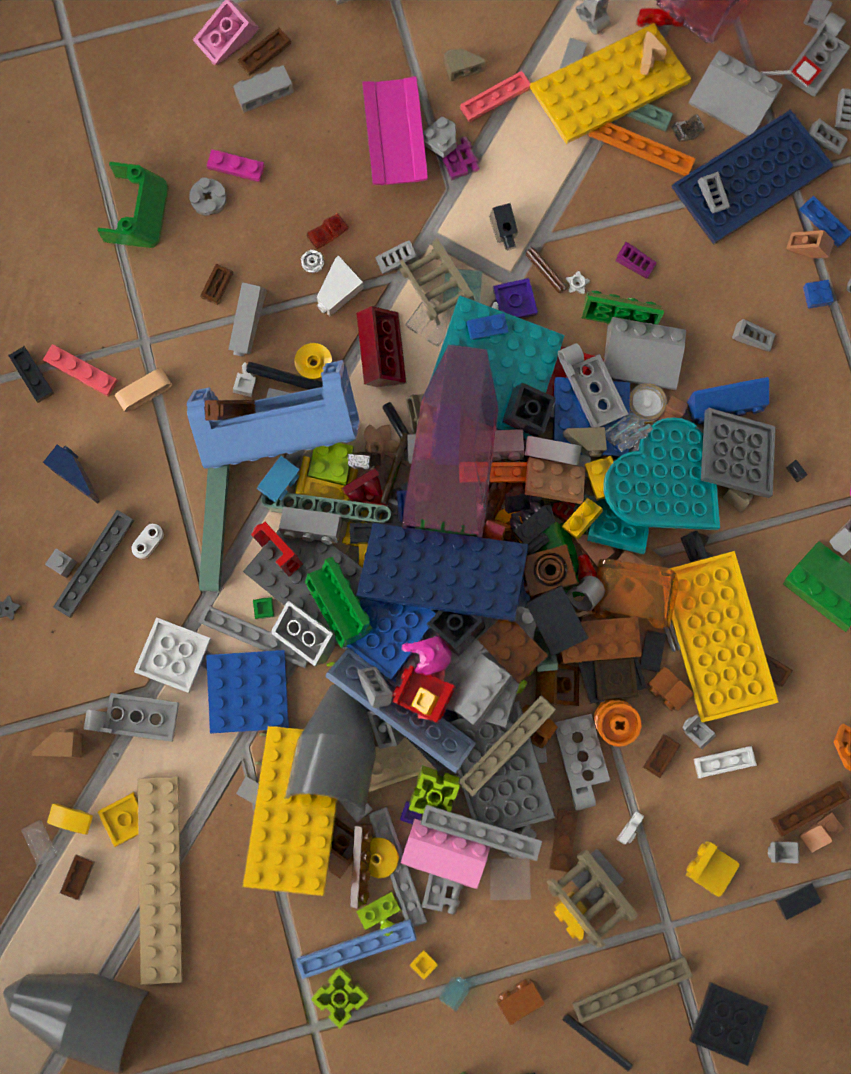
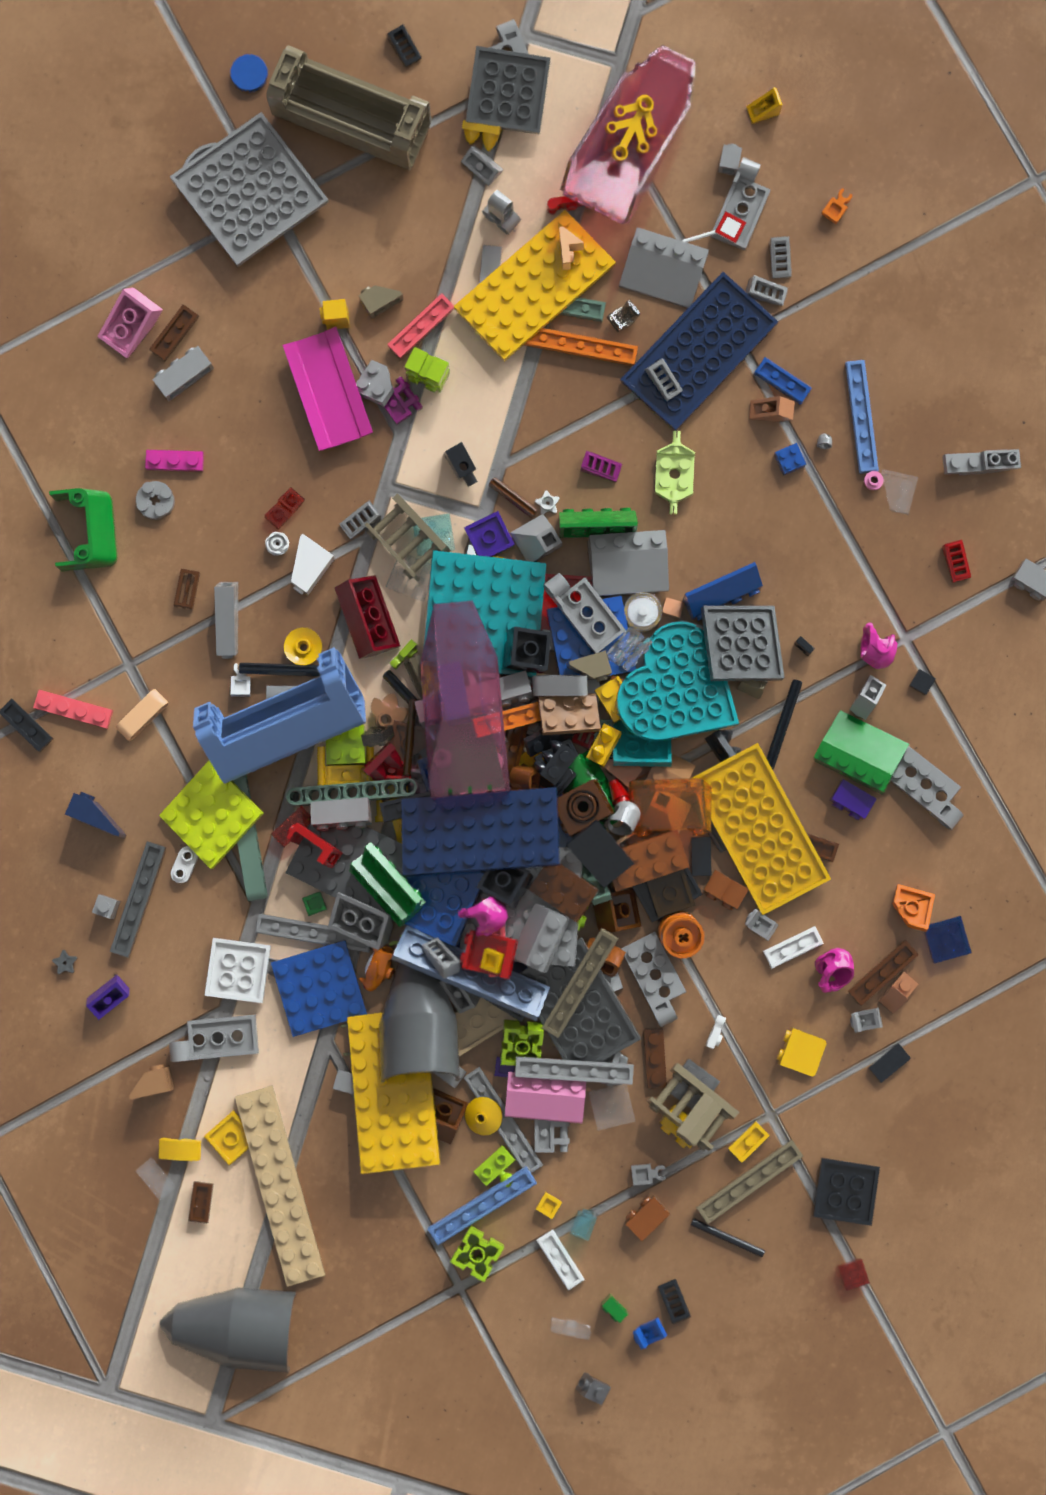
camera: 10 degrees left, 5 degrees up
(38, 650) = (107, 997): none -> dark purple brick
(184, 499) = (211, 815): none -> neon yellow plate
(228, 409) = (235, 721): reddish brown container -> none
(270, 518) = (299, 816): none -> clear red slope
(278, 478) = (298, 775): dark azure brick -> none
(310, 685) = (378, 968): none -> orange animal
(360, 868) = (467, 1126): reddish brown plate -> none
(409, 389) = (407, 652): none -> lime plate
(418, 64) = (335, 314): none -> yellow brick
(422, 1023) = (560, 1259): none -> white tile
(487, 326) = (467, 576): blue plate -> none
(492, 134) = (427, 370): none -> lime brick
(526, 956) = (643, 1174): none -> light grey plate
(560, 312) = (536, 539): none -> light grey slope
(596, 914) = (699, 1120): none -> dark tan piece
(639, 948) = (748, 1141): none -> yellow plate
(661, 756) = (731, 956): reddish brown plate -> none
(709, 268) = (679, 458): none -> yellowish green plate
(744, 338) = (718, 518): light grey slope -> none
(762, 538) = (784, 722): none -> black axle
(767, 789) = (838, 964): none -> dark pink helmet
(814, 630) = (852, 800): none -> dark purple brick

